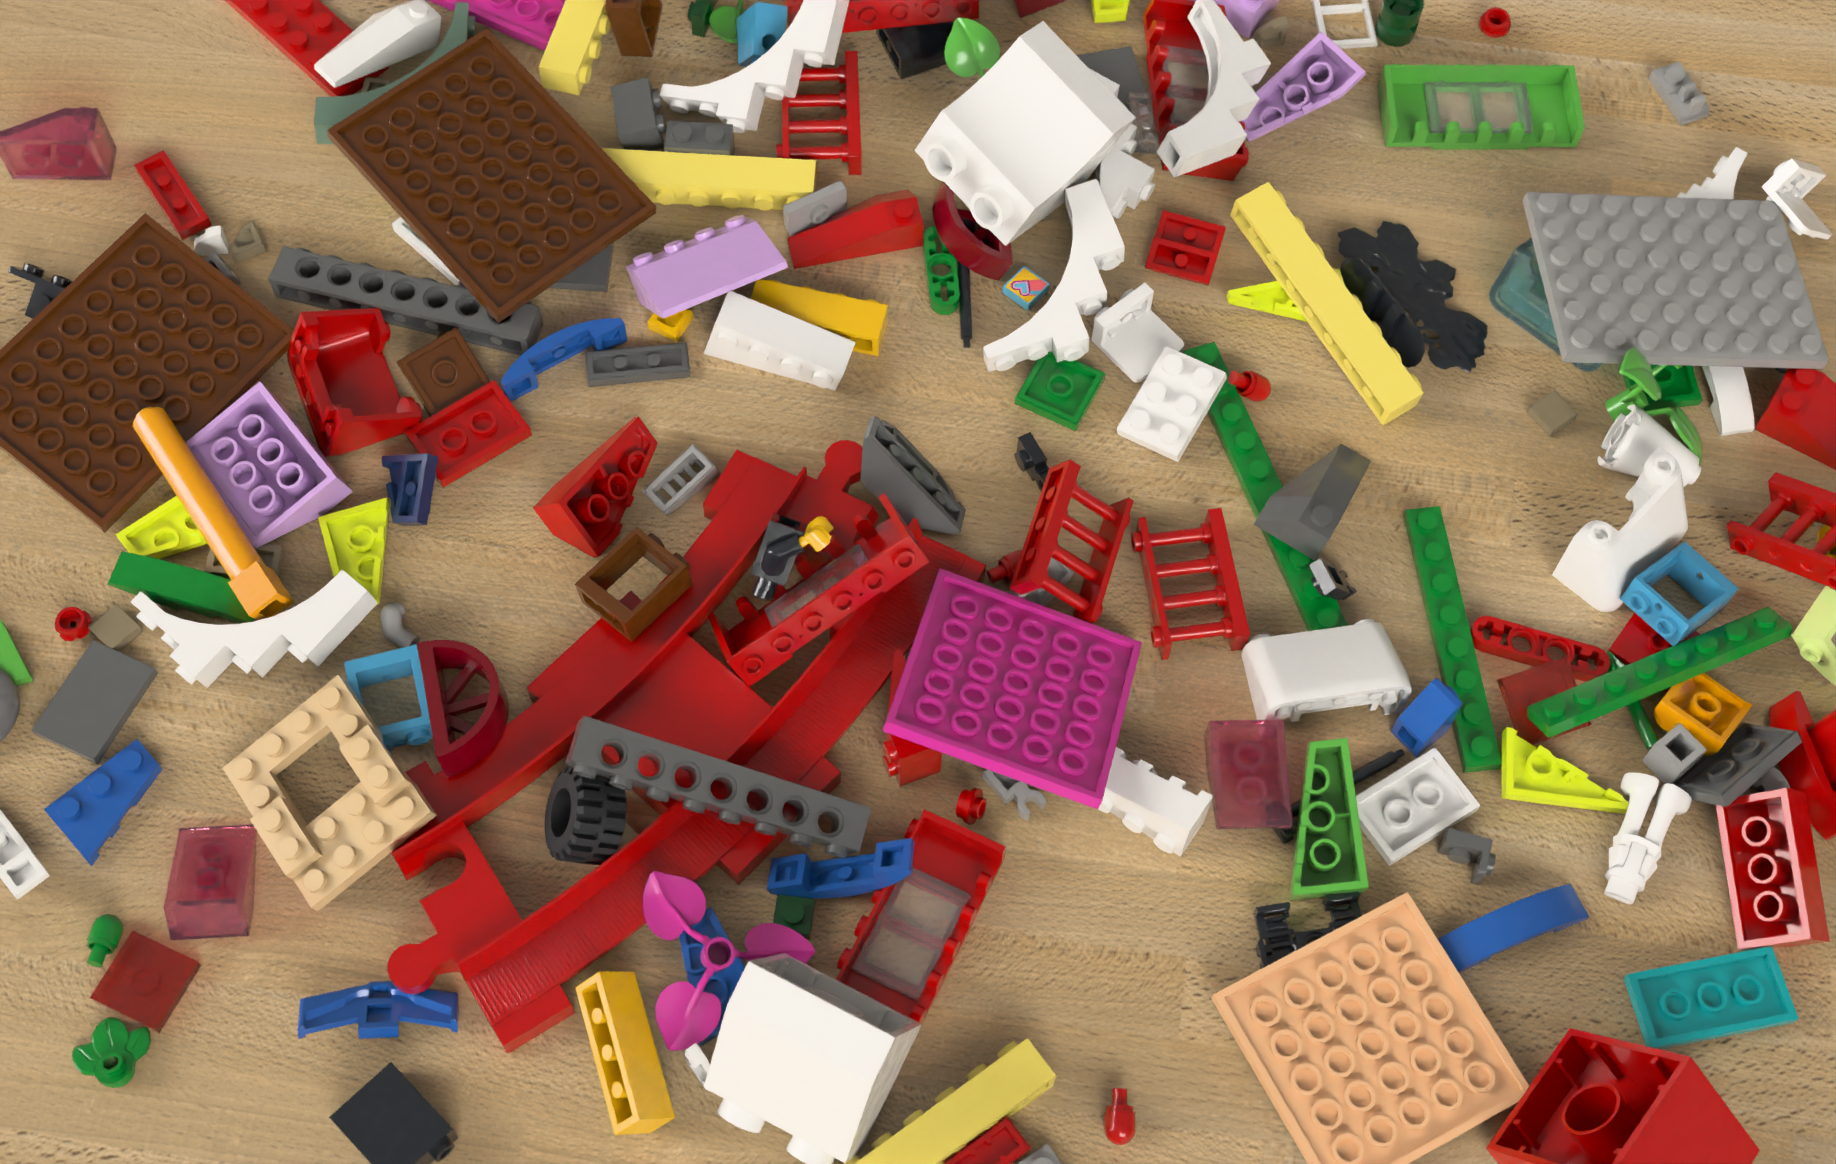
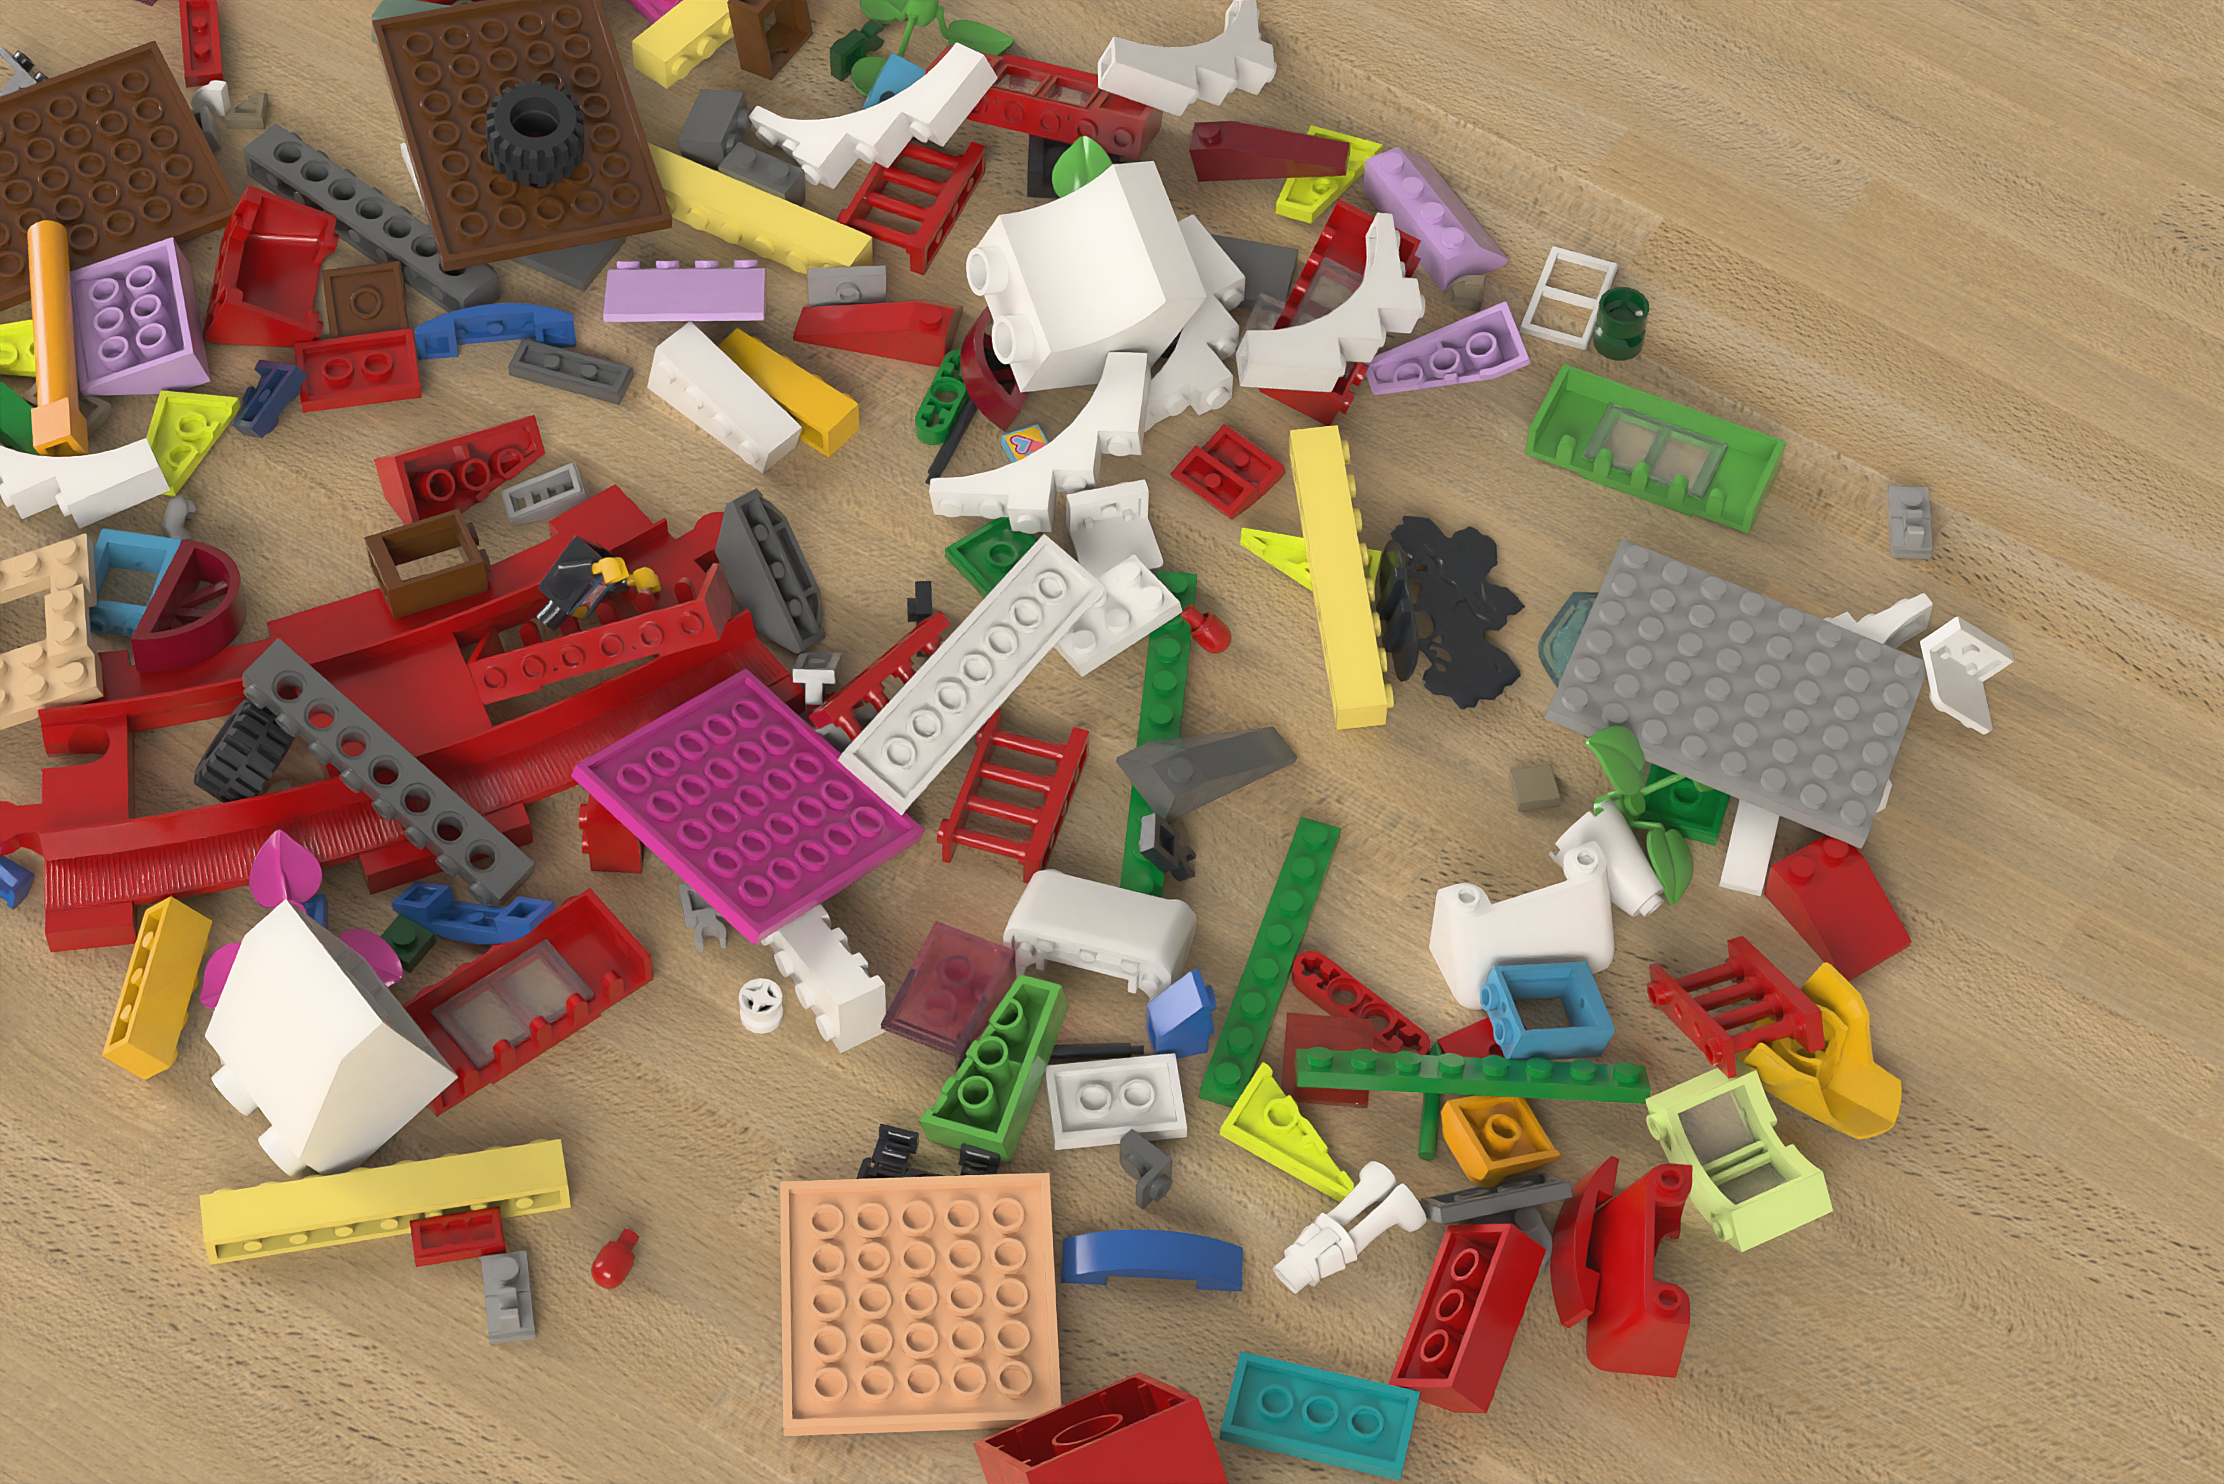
camera: 25 degrees right, 10 degrees down
(513, 155) = (535, 109): none -> black tyre
(671, 326) = (631, 341): yellow tile -> none
(971, 805) = (647, 912): red plate -> none
(986, 545) = (815, 671): none -> light grey plate
(1105, 837) = (756, 995): none -> white wheel
(1114, 501) = (971, 674): none -> white plate
(1495, 22) = (1736, 372): red plate -> none
(1674, 755) = (1432, 1163): light grey brick -> none

